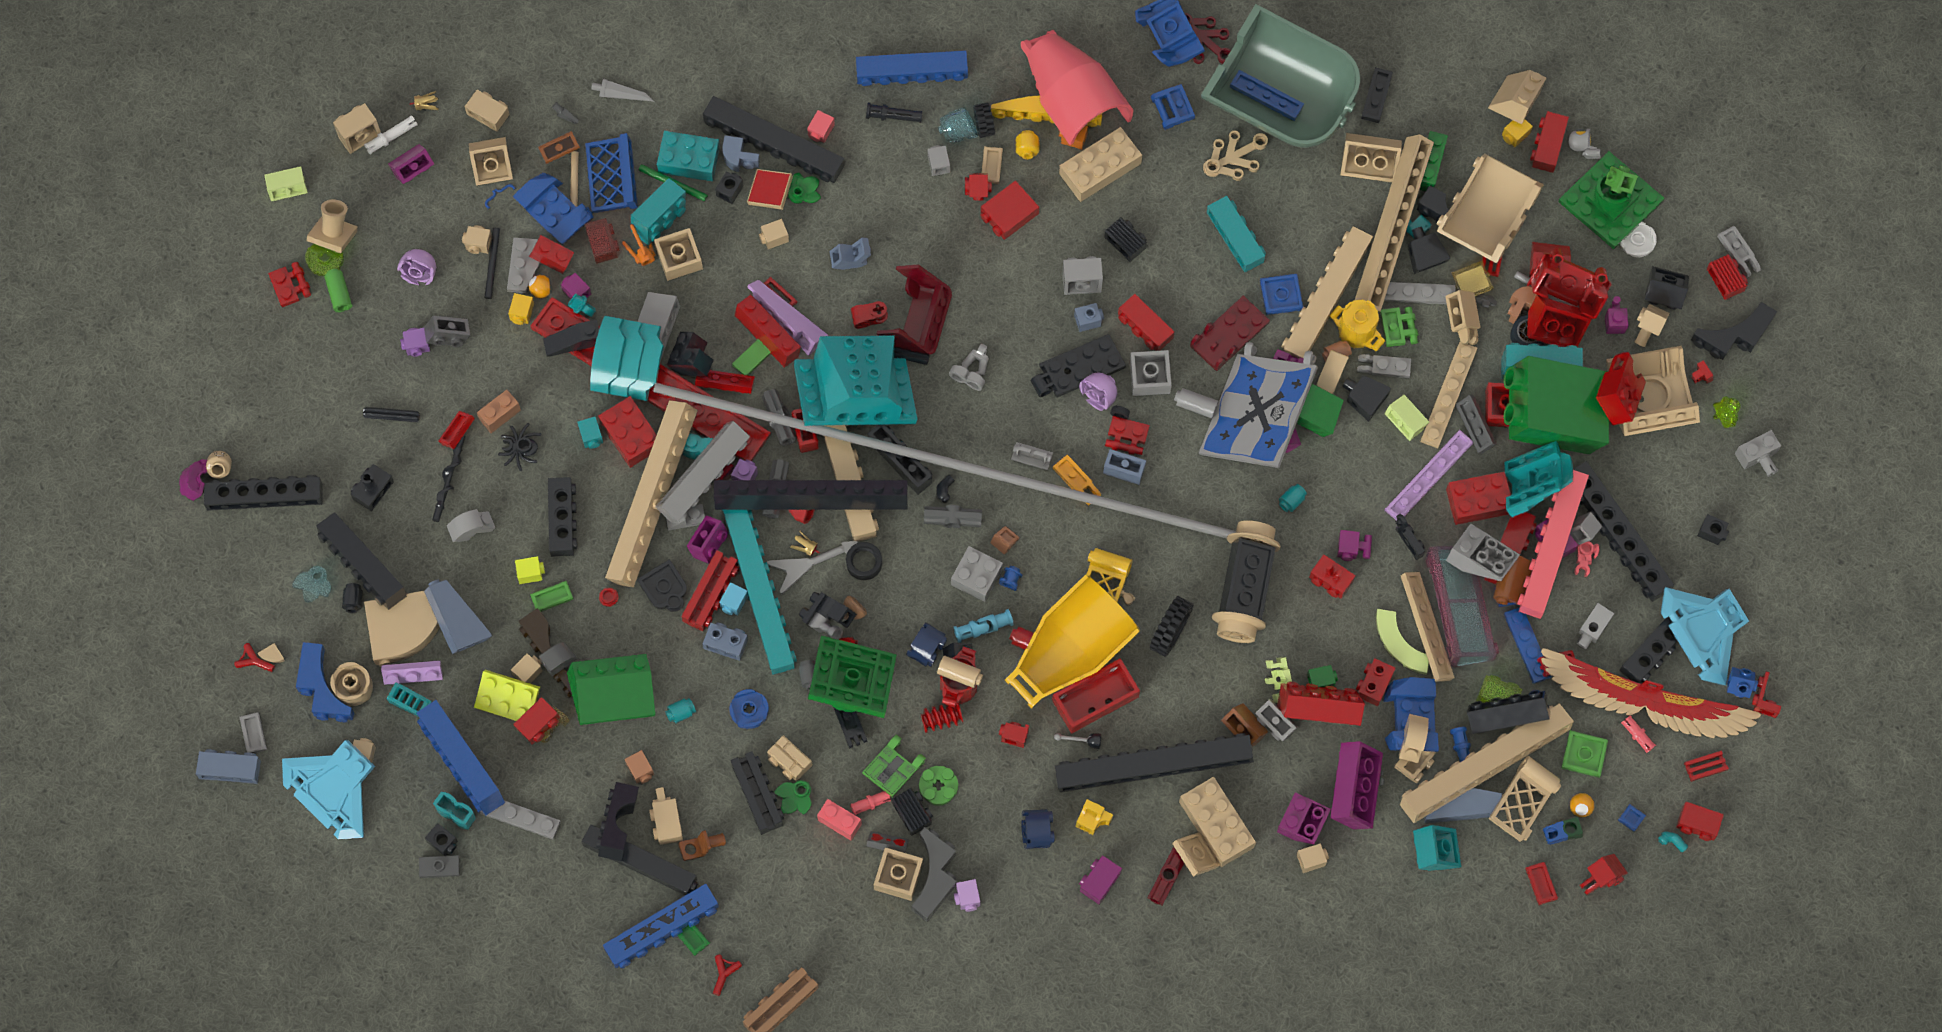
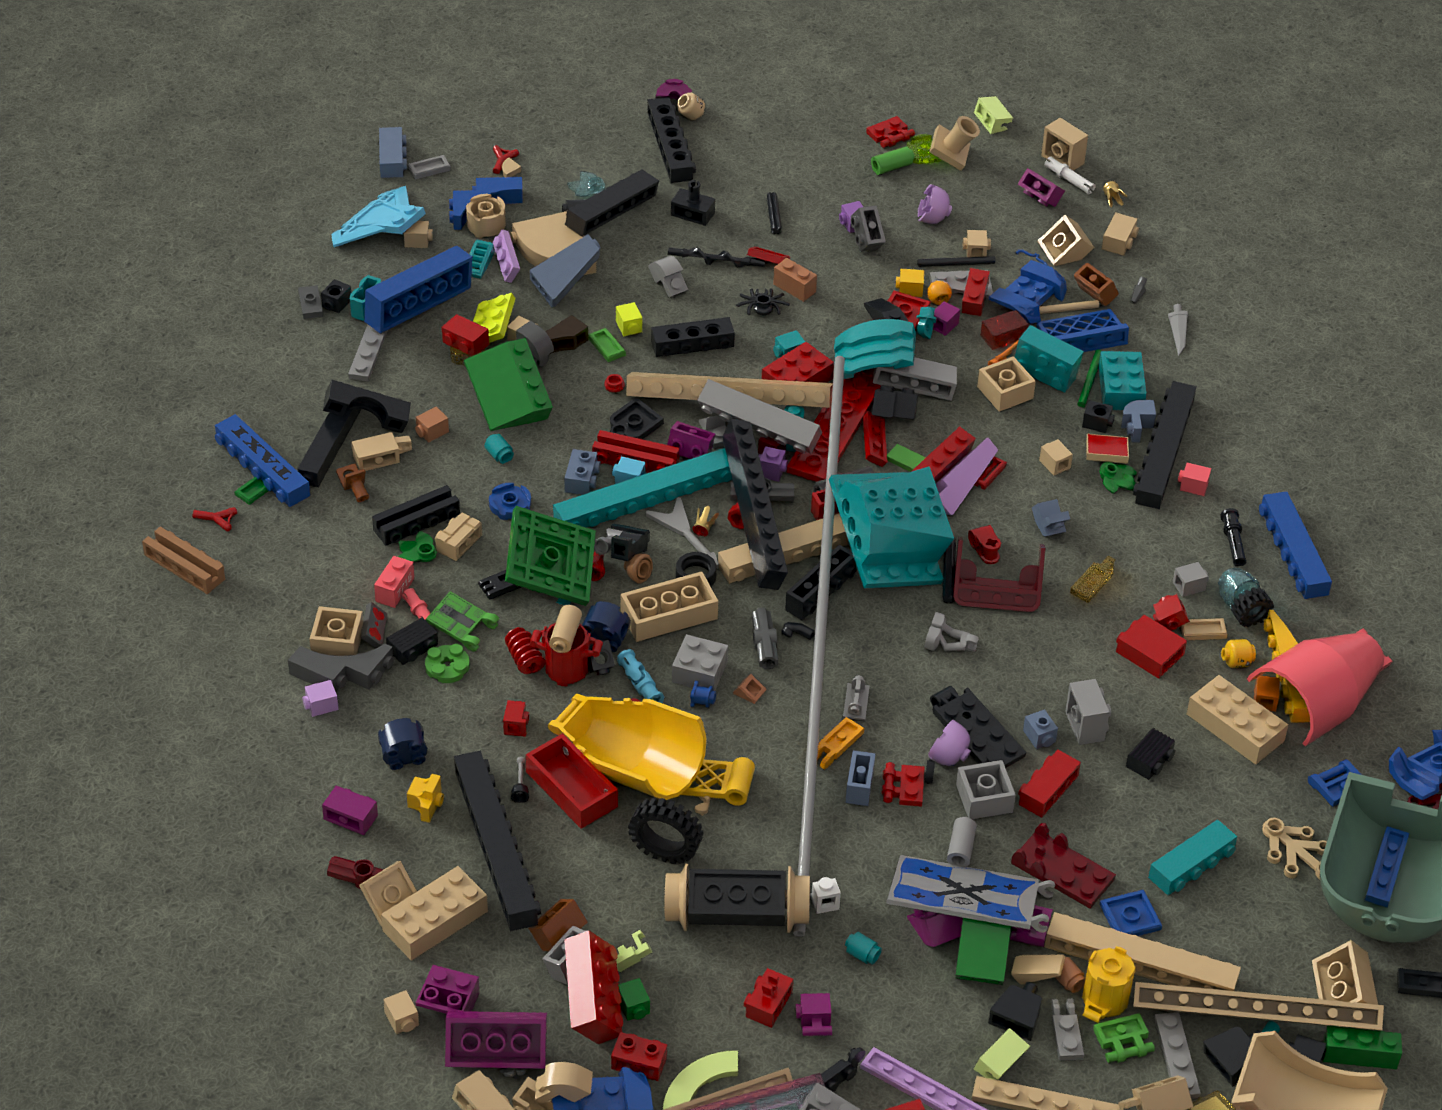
camera: 80 degrees right, 25 degrees down
(909, 588) = (670, 606): none -> tan brick
(925, 237) = (1093, 579): none -> clear yellow hinge
(1238, 513) = (825, 889): none -> white brick

